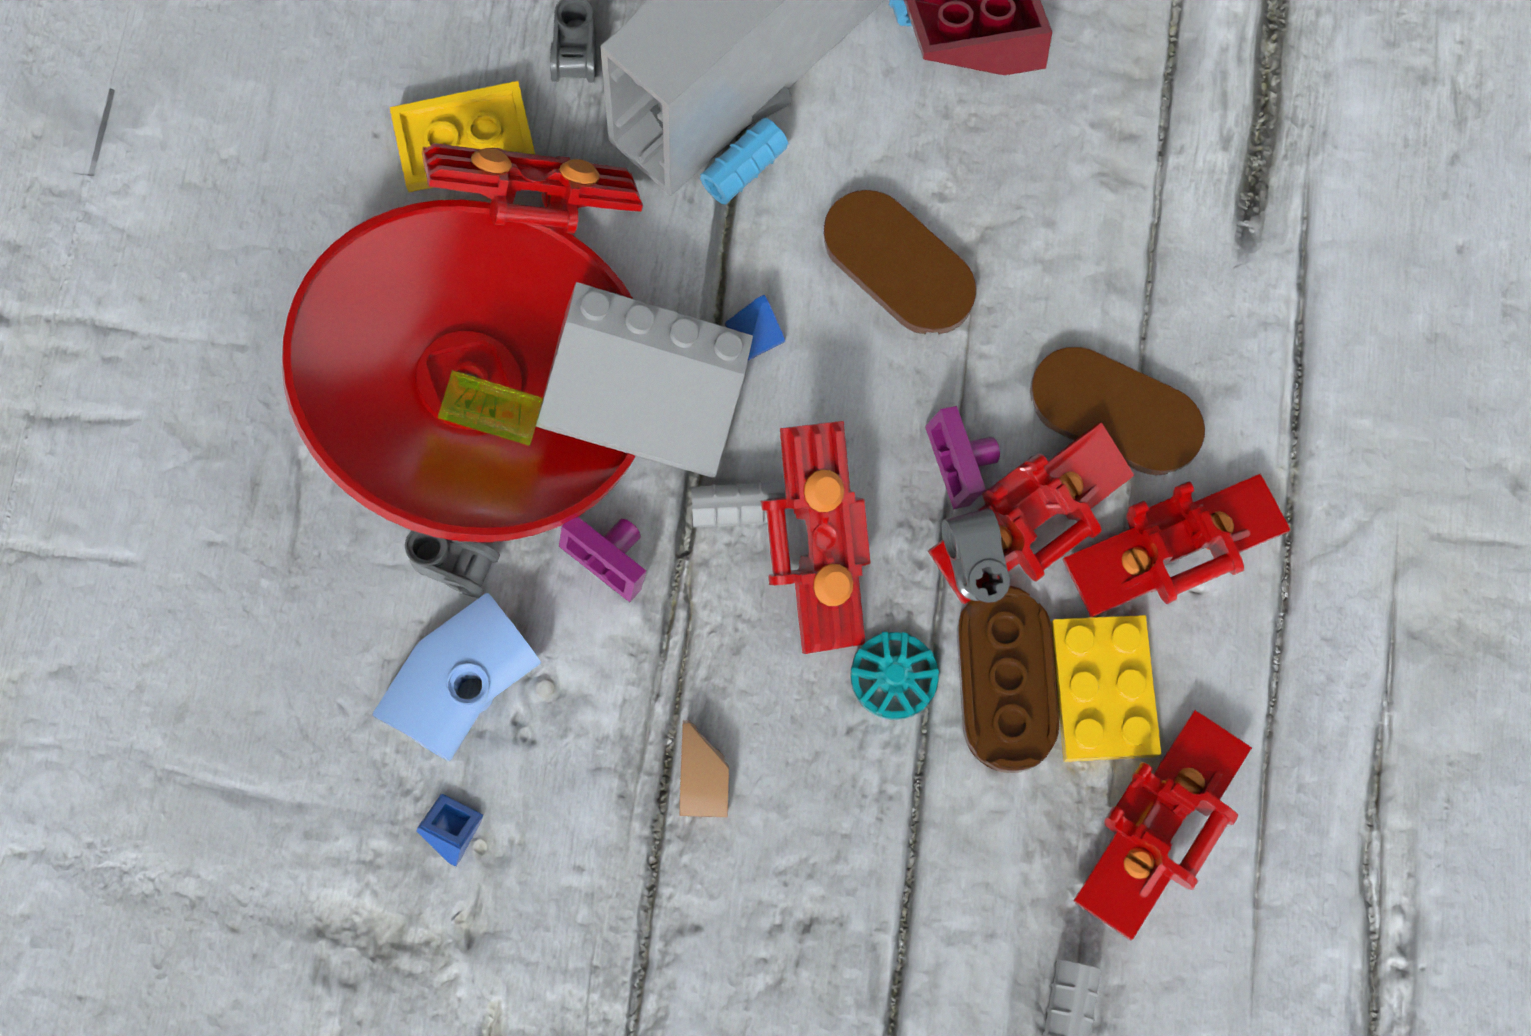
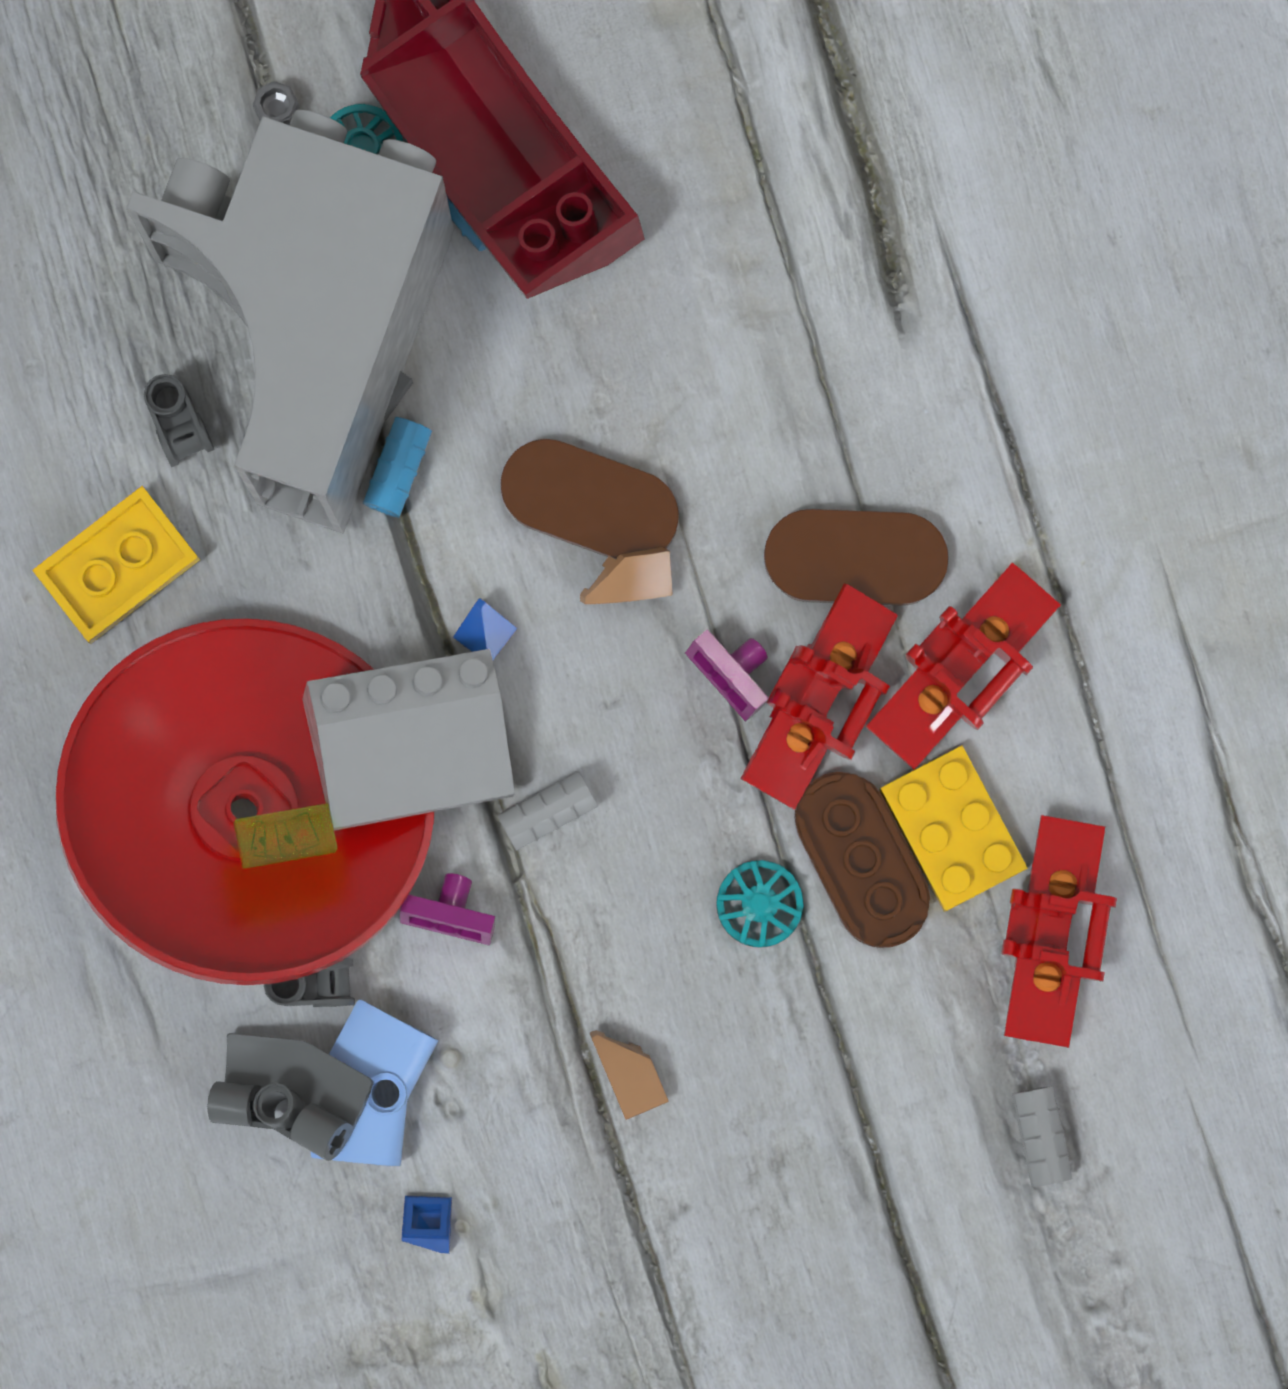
camera: 20 degrees left, 10 degrees up
(407, 651) = (320, 1091): none -> dark grey panel
(502, 173) = (230, 573): red piece -> none
(837, 536) = (653, 805): red piece -> none
(908, 338) = (632, 578): none -> medium nougat slope
(976, 549) = (782, 762): dark grey piece -> none

